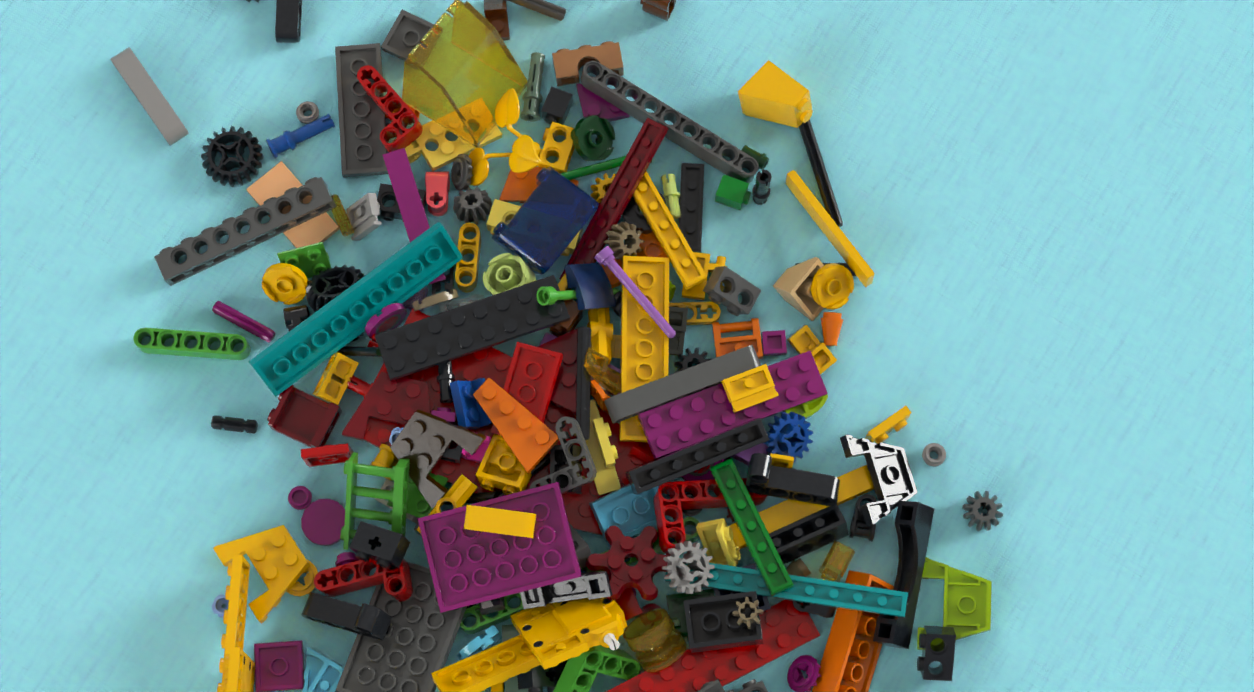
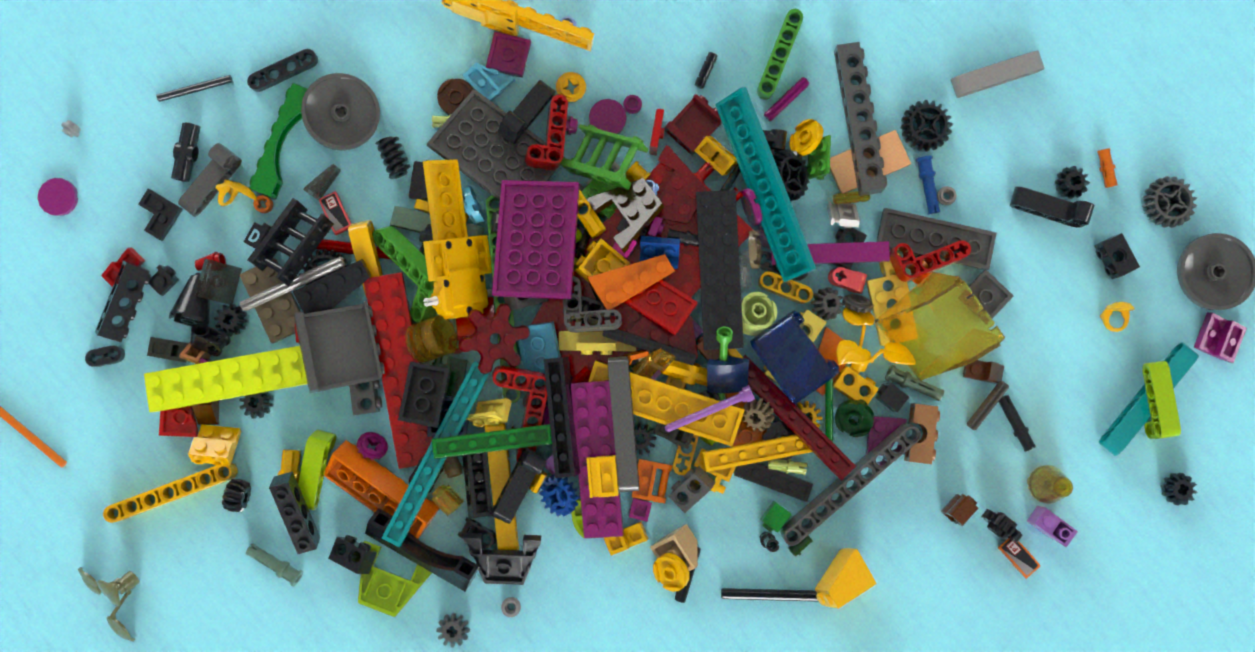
camera: 105 degrees right, 10 degrees up
(275, 559) = (590, 71): yellow wing -> none
(379, 545) = (577, 143): black brick -> none
(499, 521) = (552, 243): yellow beam -> none
(590, 586) = (485, 301): slope -> none
(679, 572) = (464, 377): light grey gear -> none
(742, 608) = (422, 419): dark tan gear -> none
(829, 228) = (720, 586): yellow tile -> none
(831, 327) = (638, 559): orange cone -> none
(896, 421) = (544, 584): yellow plate -> none

